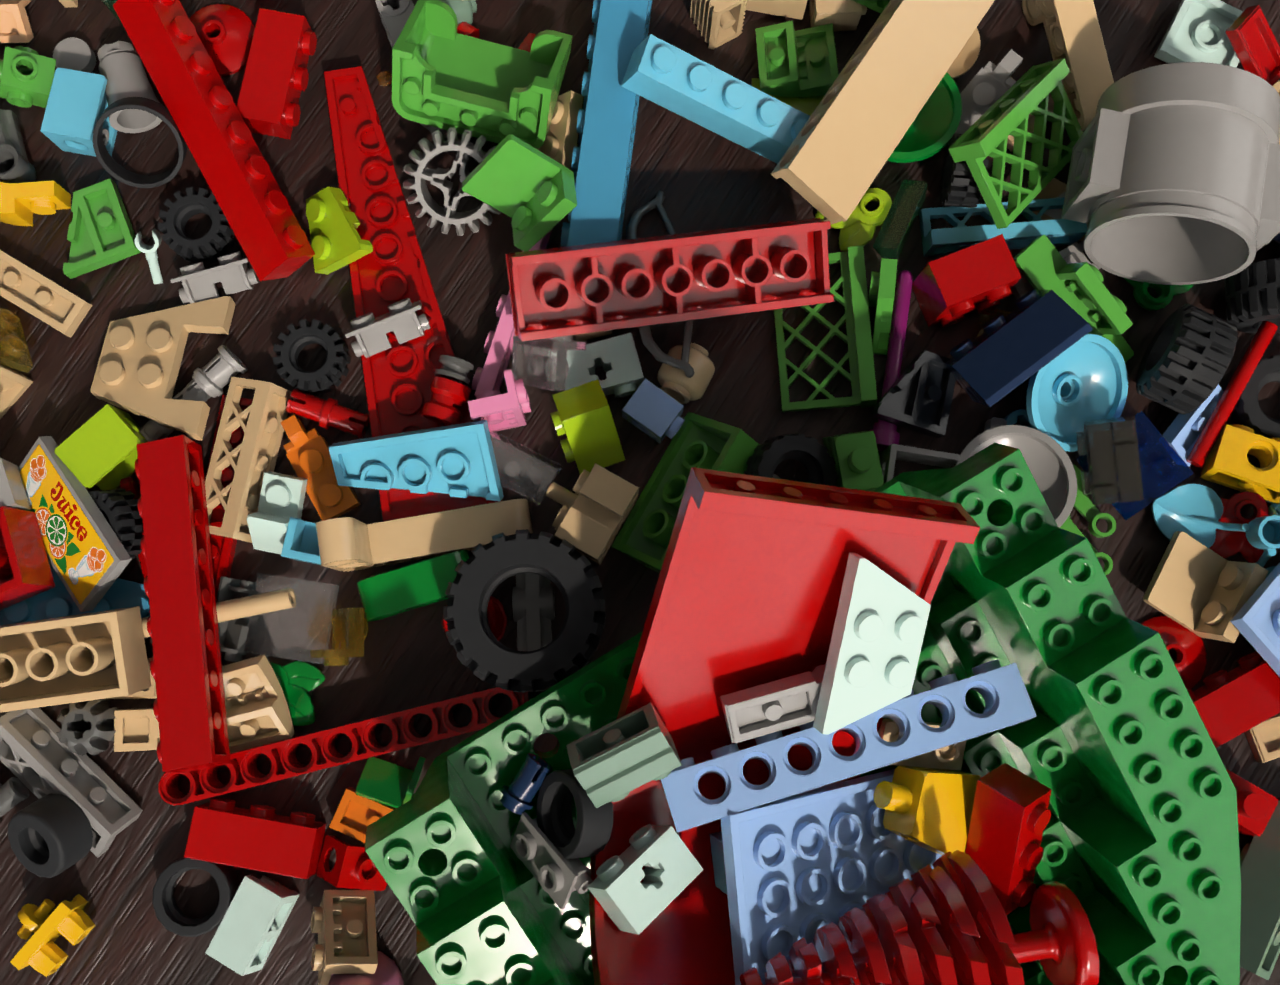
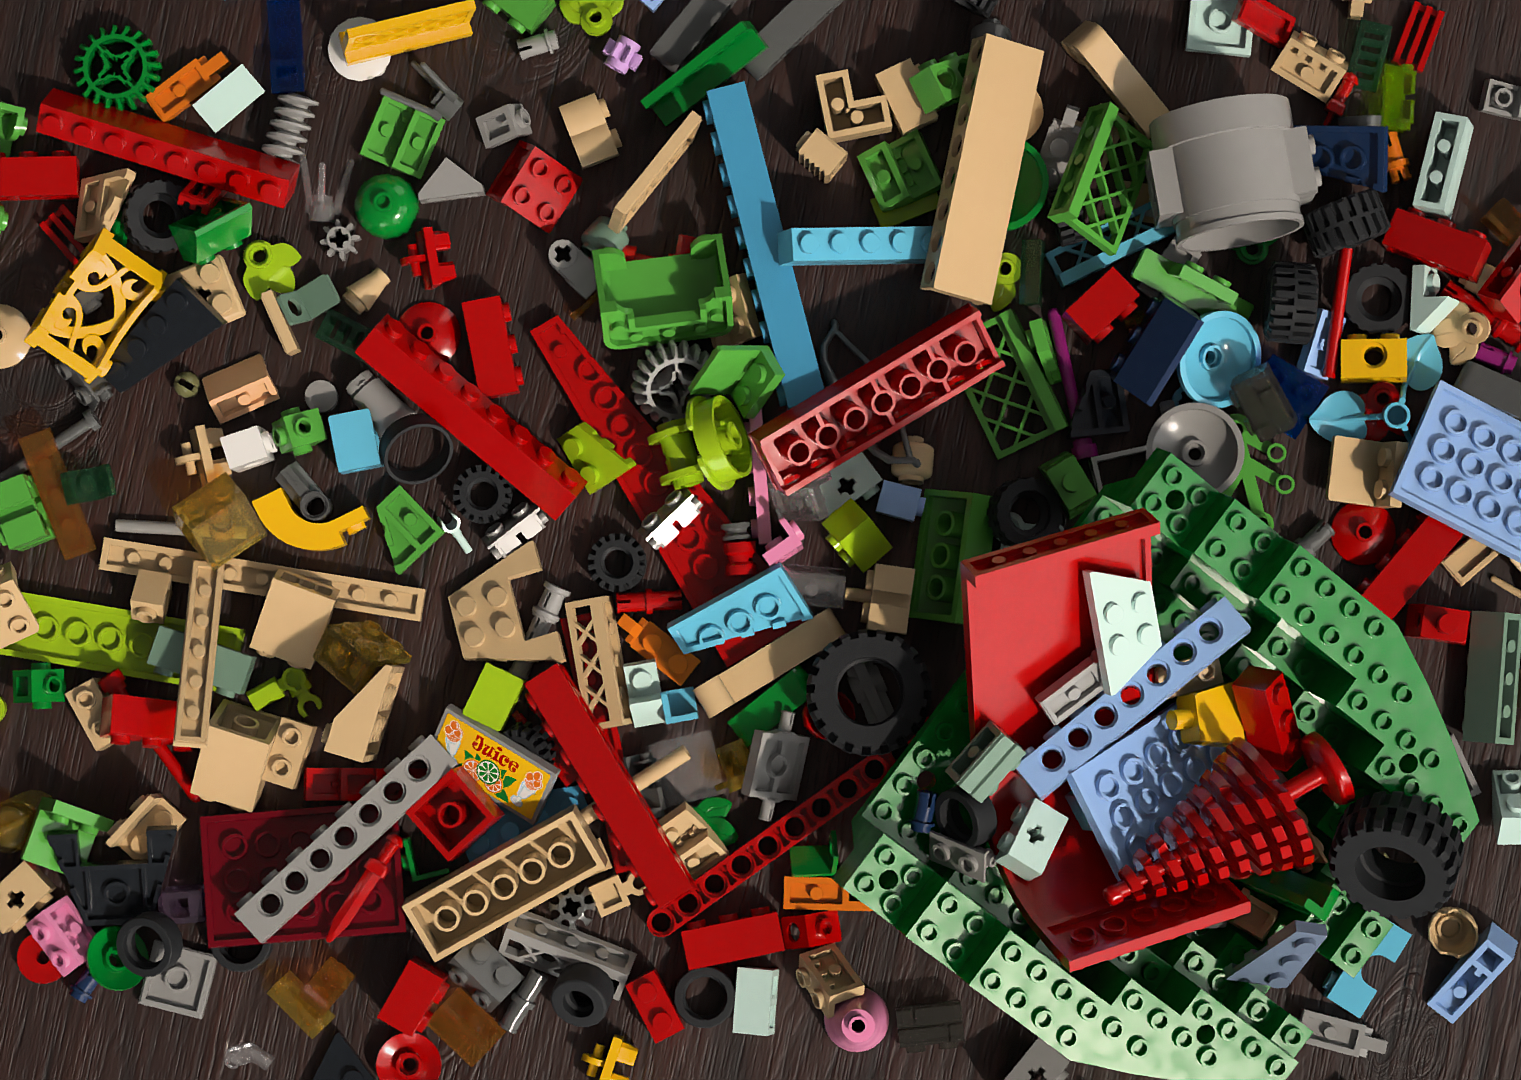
camera: 15 degrees left, 5 degrees up
(127, 881) = (655, 1005): none -> red brick
(387, 654) = (775, 765): none -> light grey plate
(455, 255) = (718, 437): none -> lime piece

